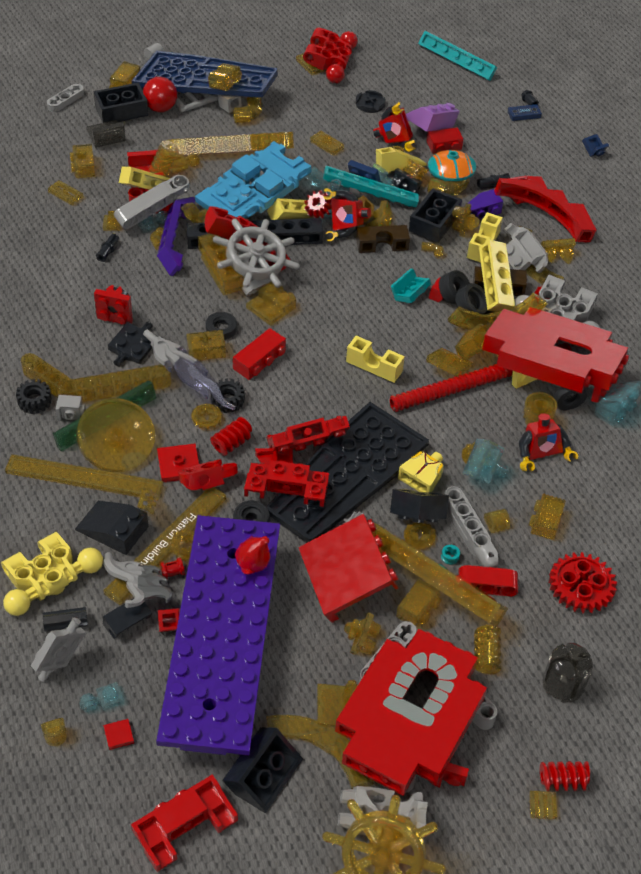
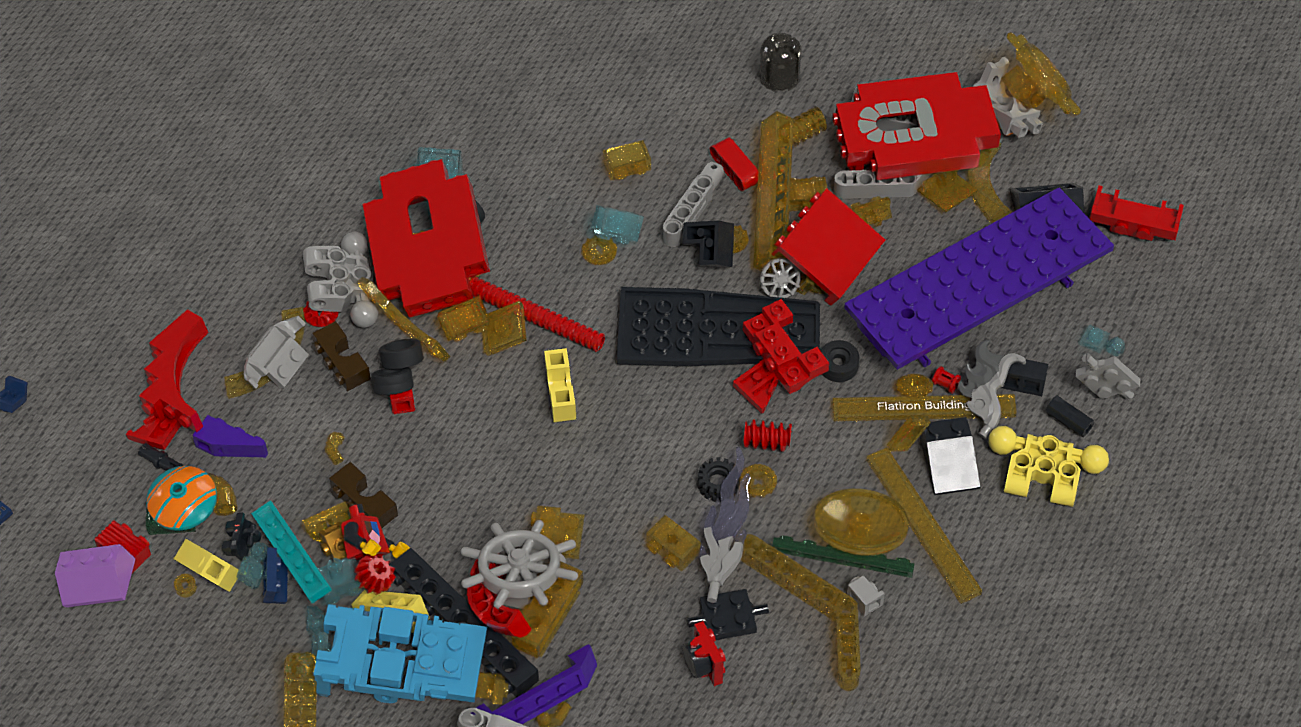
camera: 125 degrees left, 5 degrees up
(33, 388) = (882, 628): black tyre -> none
(54, 732) = (1161, 344): clear yellow brick -> none
(118, 734) = (1116, 310): red piece -> none
(168, 619) = (998, 344): red brick -> none
(175, 458) = (832, 463): red plate -> none
(206, 474) = (813, 411): red piece -> none
(222, 317) = (629, 569): black tyre -> none
(253, 554) = (903, 281): red hat -> none
(259, 354) = (640, 489): red brick -> none
(308, 433) = (708, 375): red bracket -> none
(327, 142) = (224, 671): clear yellow plate -> none
(370, 101) = (95, 682): black tile -> none
(395, 128) = (152, 596): torso -> none
(409, 287) = (421, 423): teal bracket -> none
(415, 169) = (214, 534): clear yellow wheel -> none
(422, 471) = (661, 269): light yellow torso -> none
(434, 215) = (284, 466): black brick -> none
(446, 558) = (731, 200): teal bush -> none
(467, 220) = (272, 432): clear yellow hips -> none
(489, 230) = (271, 407): light yellow arch -> none
(496, 276) = (354, 342): light yellow brick -> none
(497, 520) = (662, 194): clear yellow brick -> none
(537, 404) = (509, 221): clear yellow piece -> none
(542, 440) = (547, 202): torso -> none
(543, 805) = (896, 36): clear yellow piece -> none
(563, 246) = (236, 335): clear yellow tile -> none
(564, 775) = (864, 28): red piece -> none
(571, 570) = (674, 104): red gear -> none

